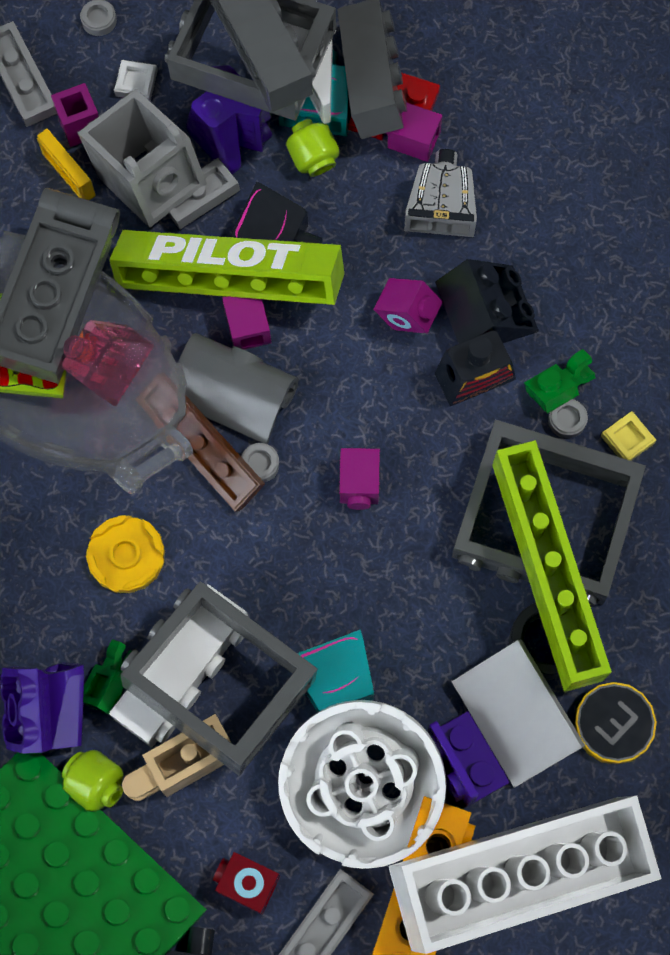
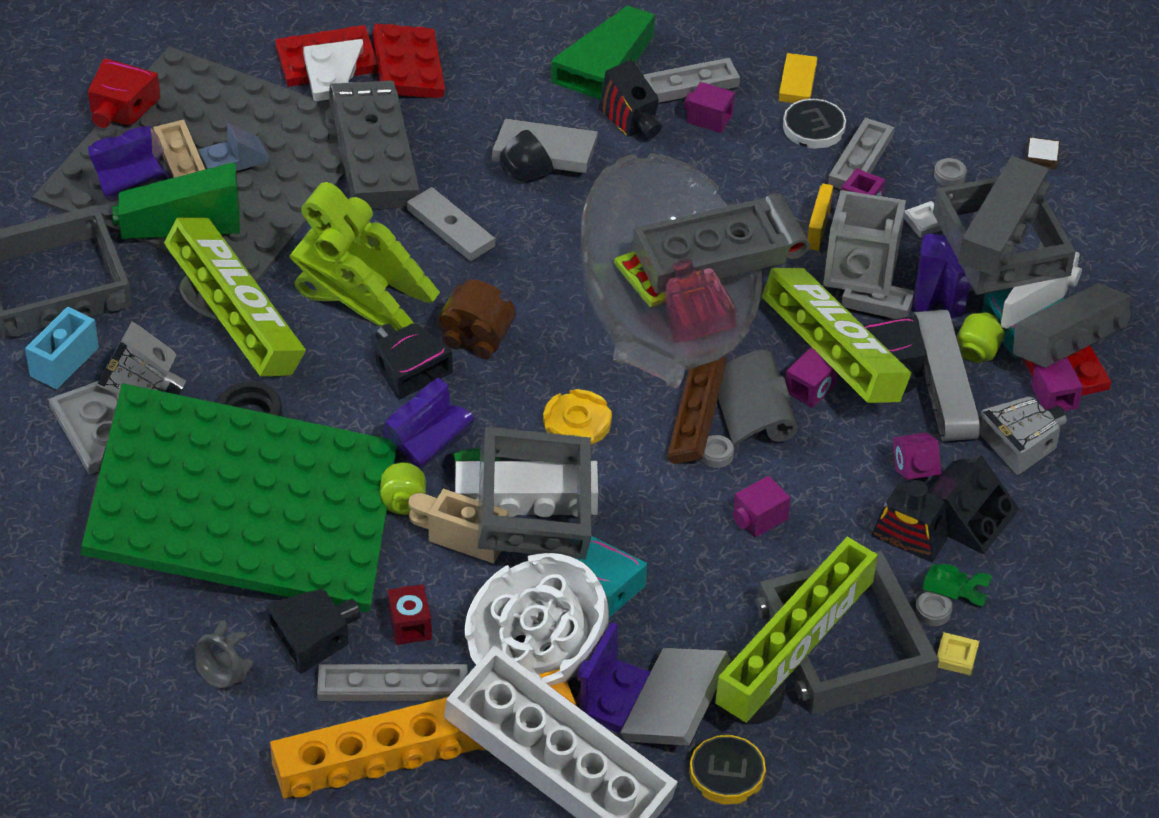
camera: 50 degrees right, 25 degrees down
(335, 209) = (947, 378): none -> light grey beam

